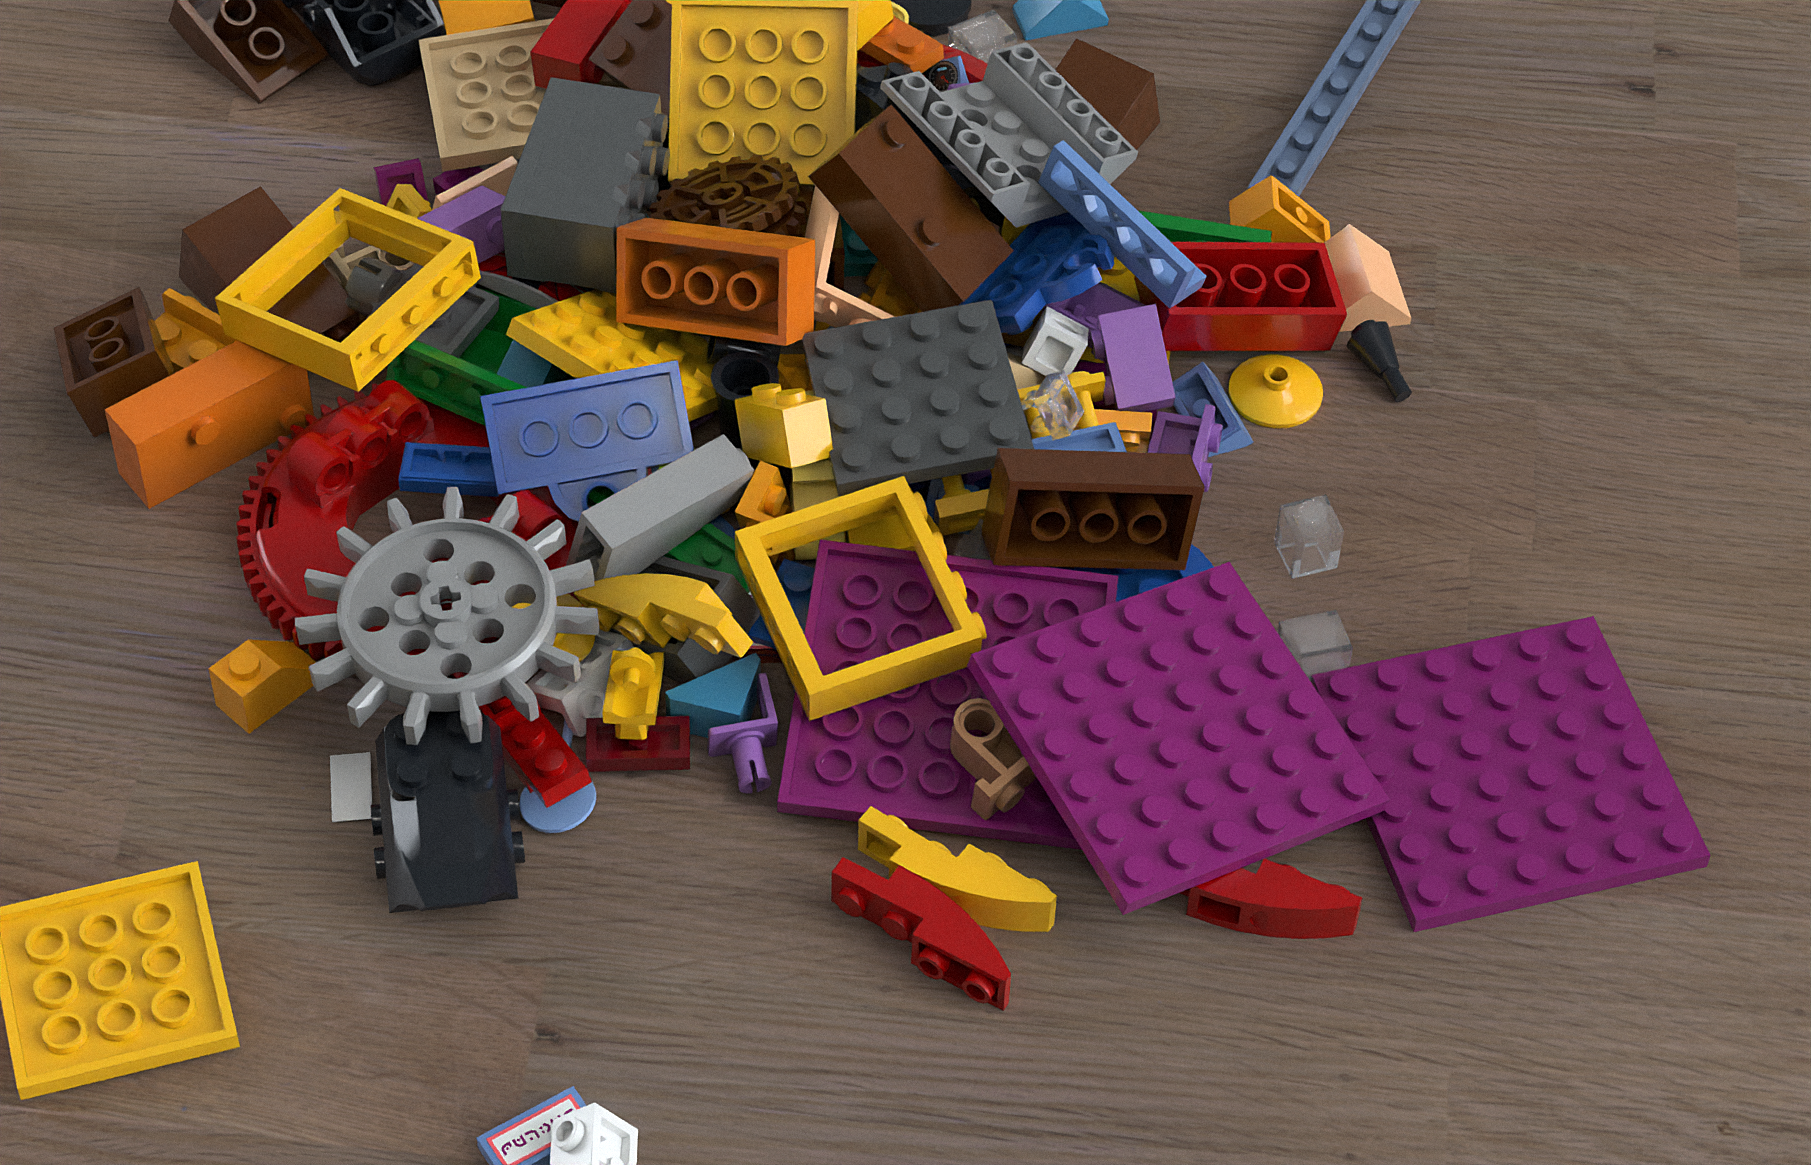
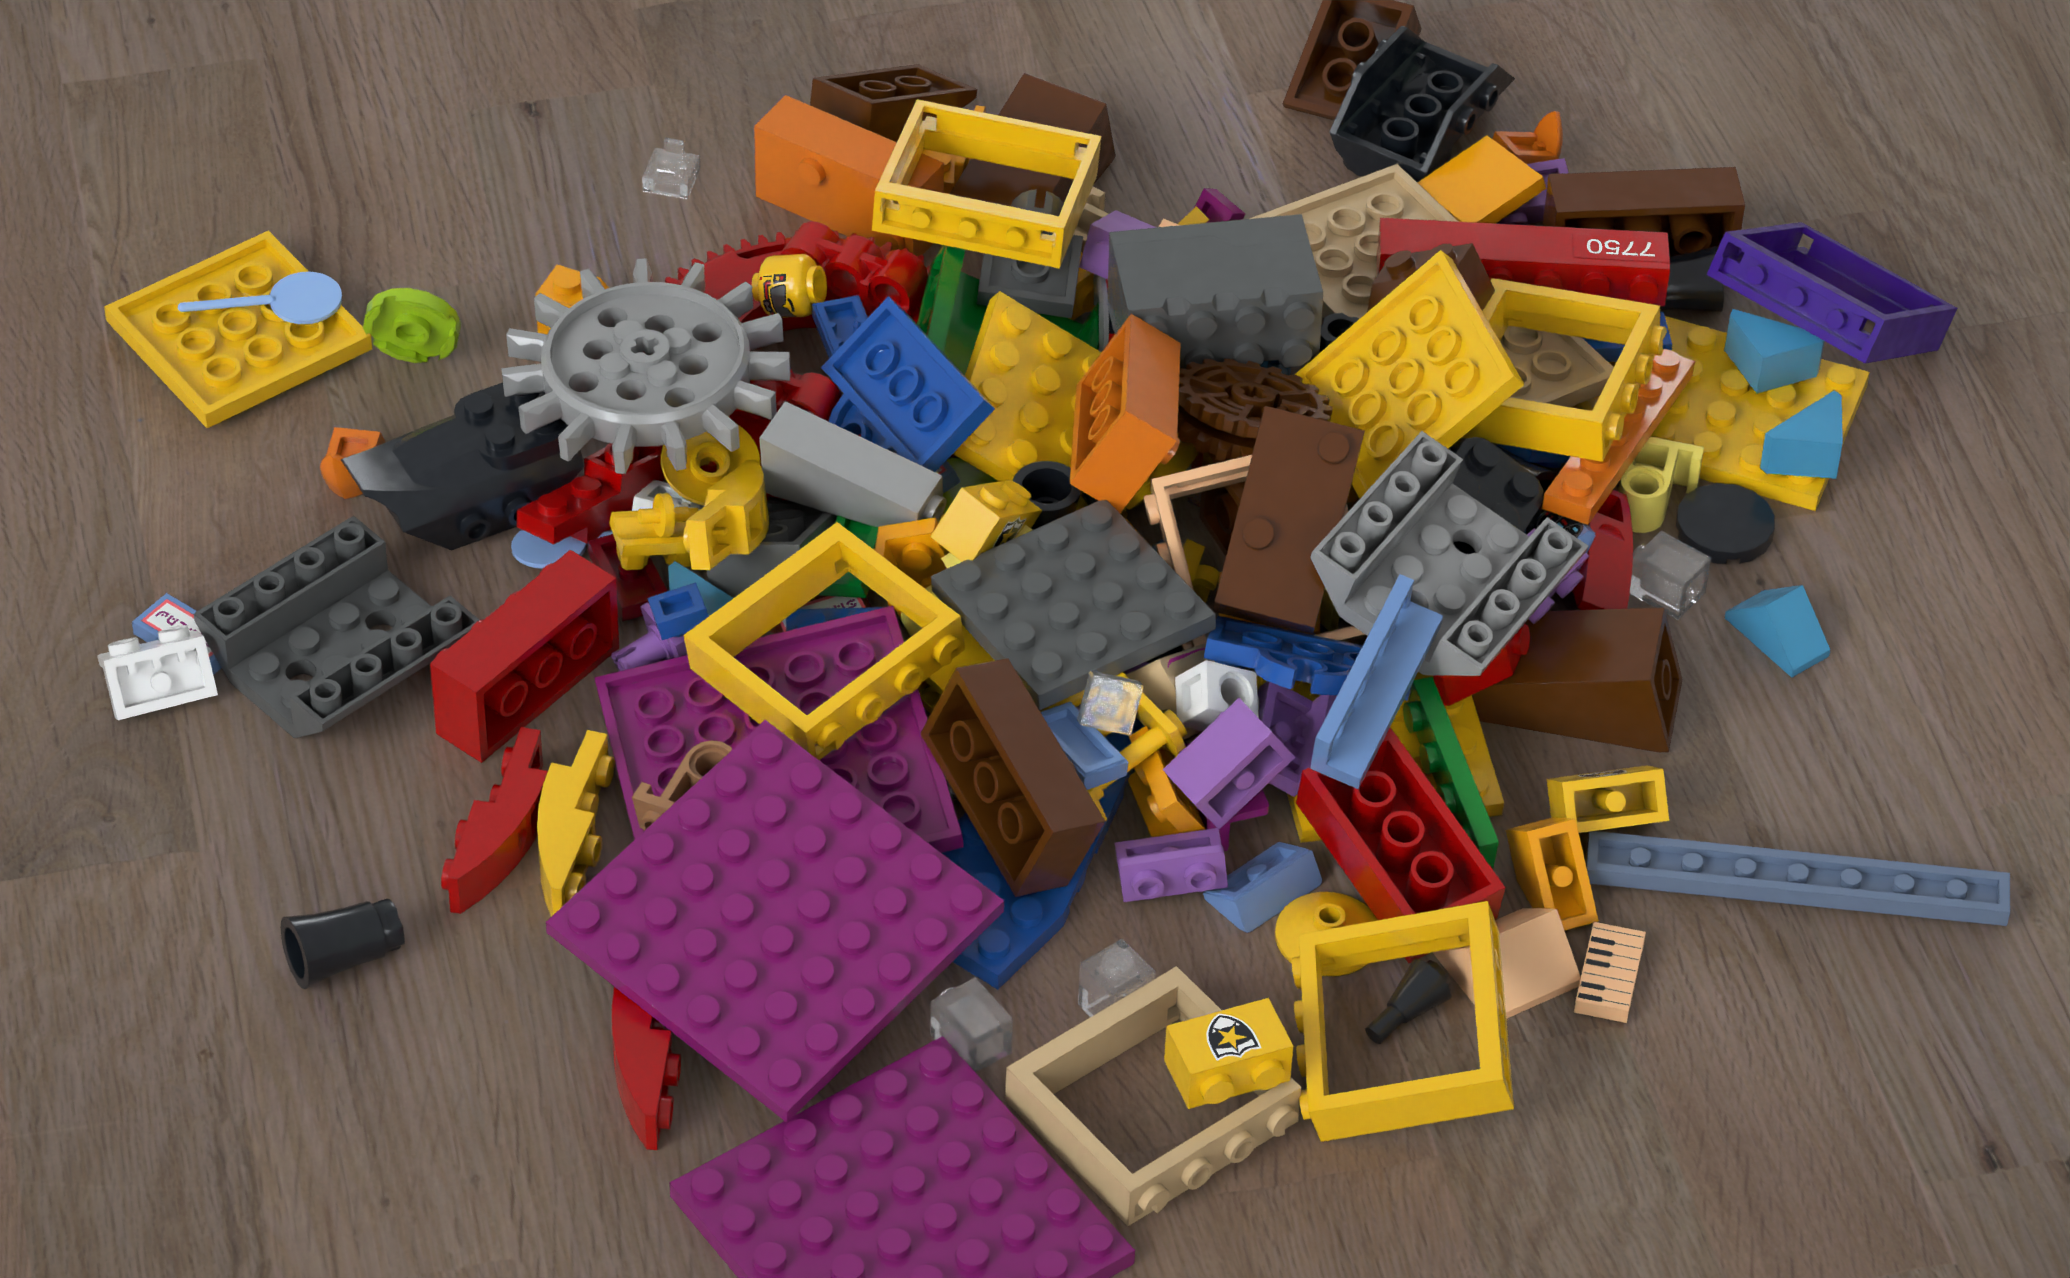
camera: 70 degrees right, 5 degrees down
(82, 559) = (671, 170): none -> clear tile
(105, 906) = (295, 299): none -> light blue piece
(223, 803) = (412, 325): none -> lime tile
(362, 489) = (789, 285): none -> yellow head
(366, 927) = (344, 444): none -> orange plate
(670, 992) = (316, 621): none -> dark grey slope
(737, 843) = (525, 655): none -> red brick
(754, 698) = (678, 610): none -> blue plate
(1033, 1102) = (339, 939): none -> black plant
(1224, 160) = (1610, 798): none -> yellow brick
(1401, 235) = (1610, 972): none -> light nougat tile
(1449, 470) = (1228, 1053): none -> yellow brick
(1453, 622) = (1101, 1038): none -> tan window
(1455, 291) = (1418, 1100): none -> yellow window

